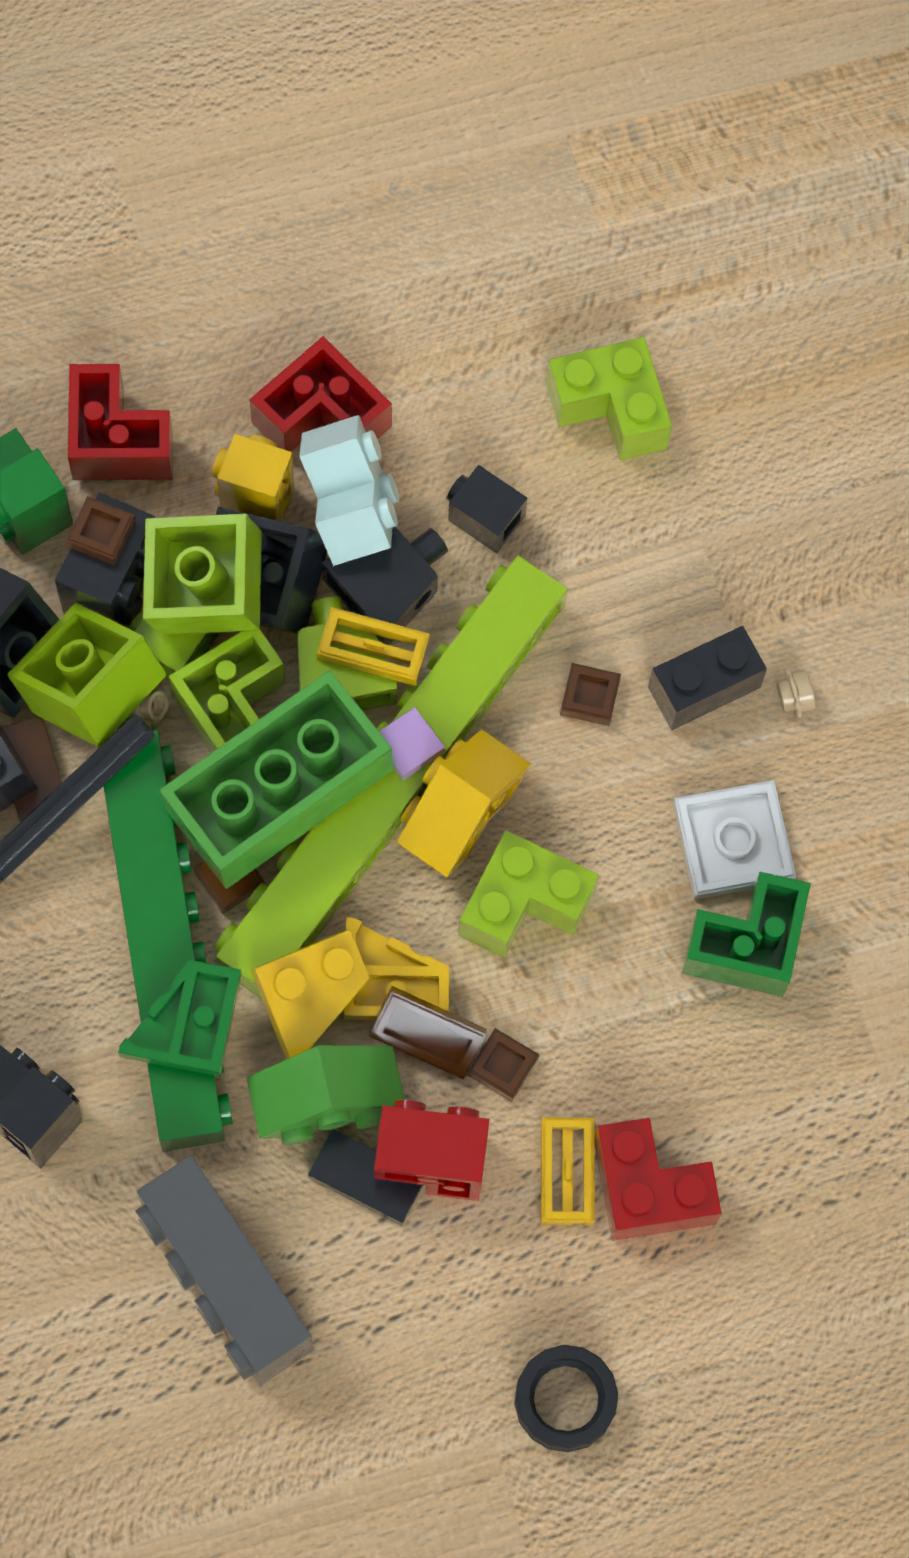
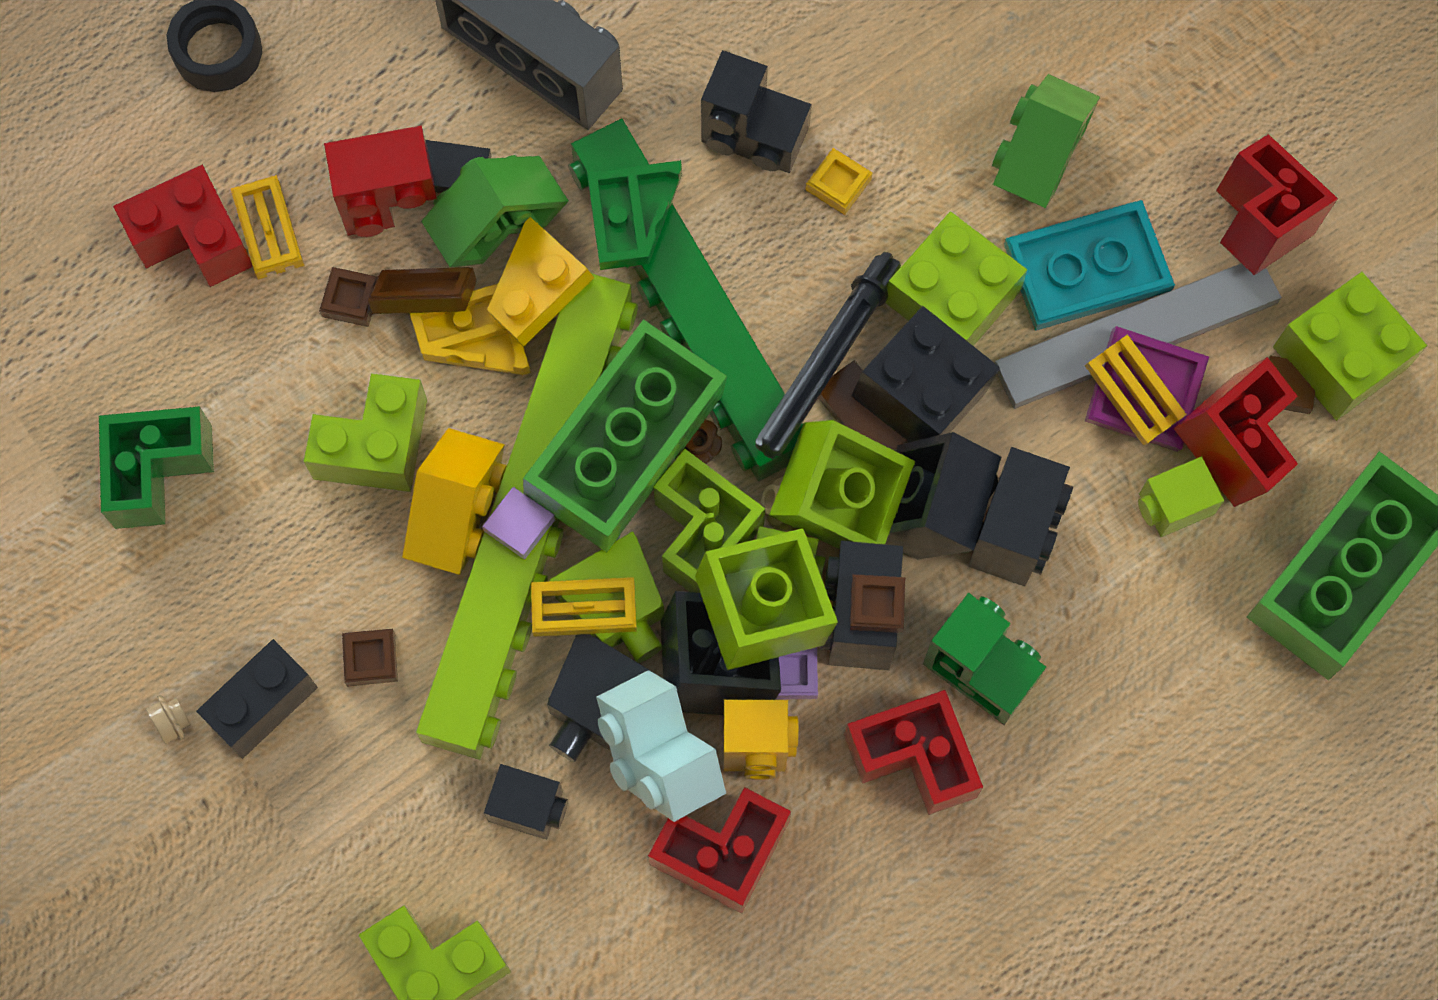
camera: 165 degrees right, 0 degrees up
(732, 838) = (194, 564): white tile -> none

